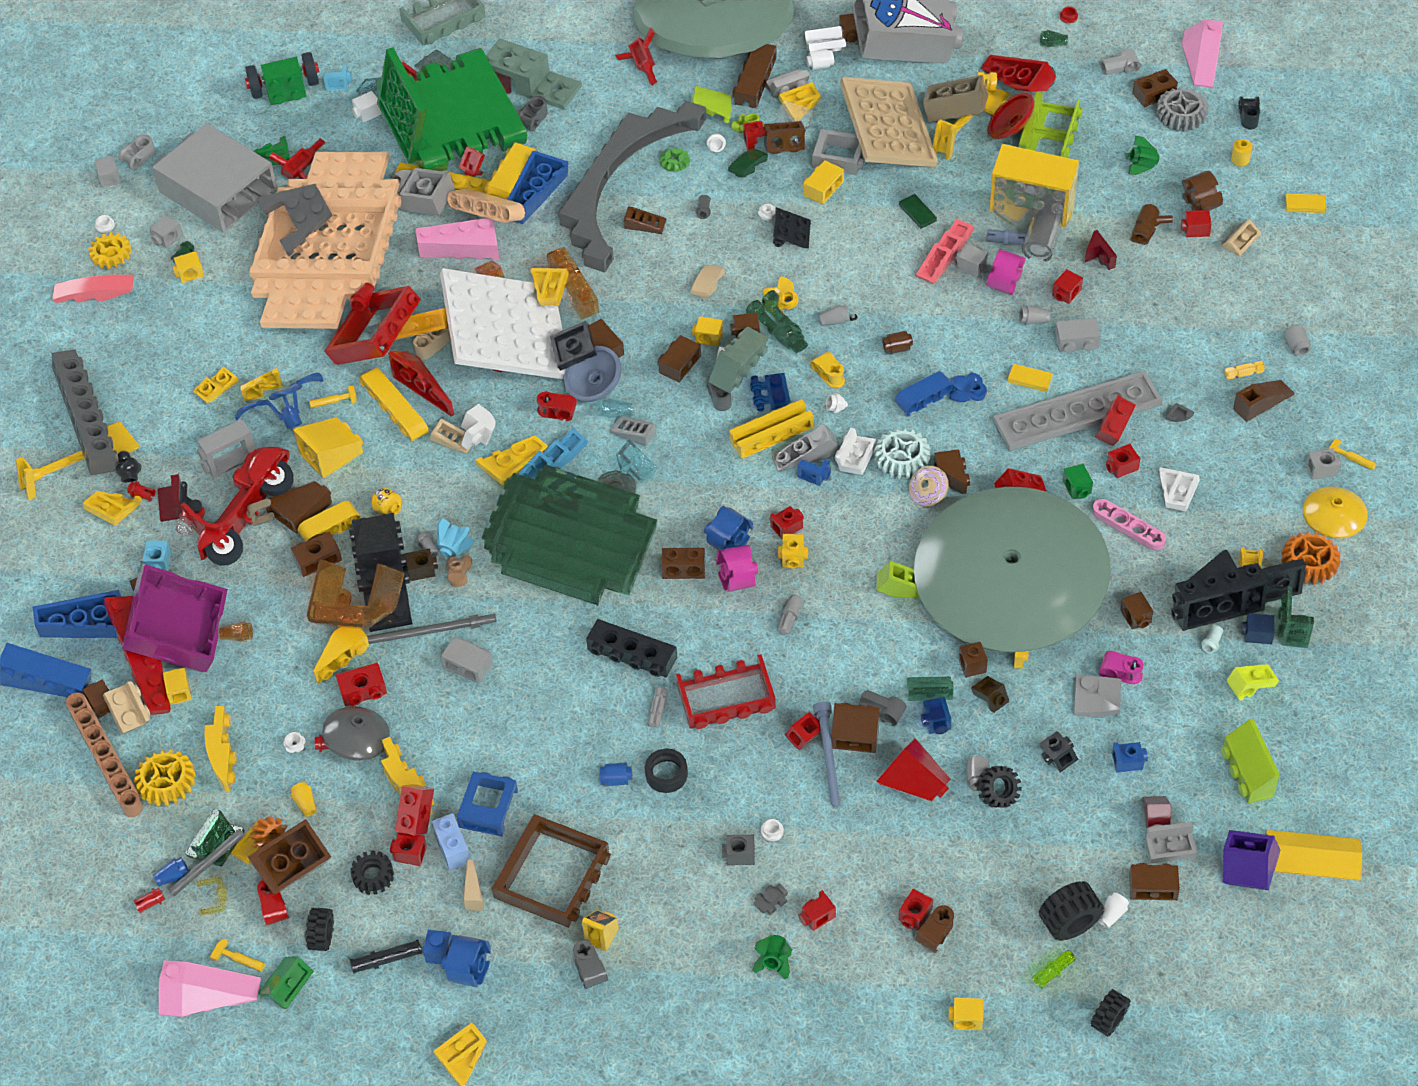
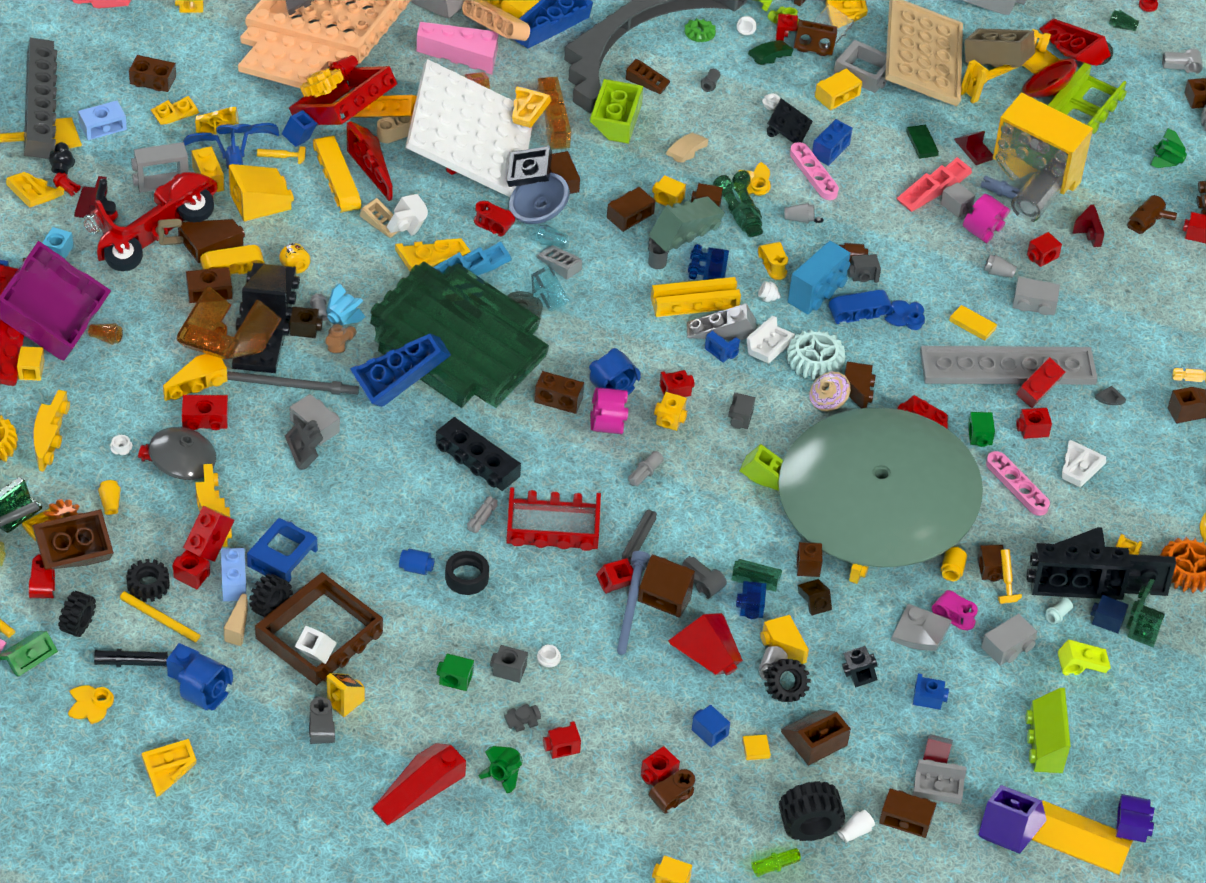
camera: 10 degrees right, 5 degrees down
(151, 416) = (102, 120): none -> light blue brick
(181, 354) = (152, 73): none -> reddish brown brick
(269, 434) = (206, 163): none -> yellow brick
(342, 369) = (299, 128): none -> blue brick
(349, 319) = (321, 82): none -> yellow gear
(361, 1015) = (88, 703): none -> yellow plate
(396, 905) = (159, 616): none -> yellow bar
(465, 687) = (302, 442): none -> dark grey hinge
(494, 853) = (269, 594): none -> black tyre
(529, 589) = (400, 368): none -> blue wedge
(558, 892) = (315, 644): none -> white brick
(630, 263) = (617, 110): none -> lime slope
(693, 874) = (455, 672): none -> green brick
(702, 990) = (420, 781): none -> red wedge
(809, 683) = (640, 534): none -> dark grey axle
(833, 269) = (811, 172): none -> bright pink beam
(838, 237) = (832, 142): none -> blue brick
(856, 530) = (741, 410): none -> dark grey brick
(879, 376) = (819, 277): none -> dark azure brick
(914, 354) = (864, 268): none -> dark grey brick
(945, 853) = (710, 725): none -> blue brick
(966, 203) = (974, 147): none -> dark red slope
(978, 741) = (784, 634): none -> yellow slope
(993, 860) = (756, 747): none -> yellow tile
(1044, 830) = (818, 735): none -> reddish brown slope
(1103, 623) = (953, 563): none -> yellow brick
(1164, 639) = (1007, 577): none -> yellow piece
(1180, 682) = (1009, 640): none -> light grey brick
(1355, 822) = (1134, 818): none -> dark purple brick

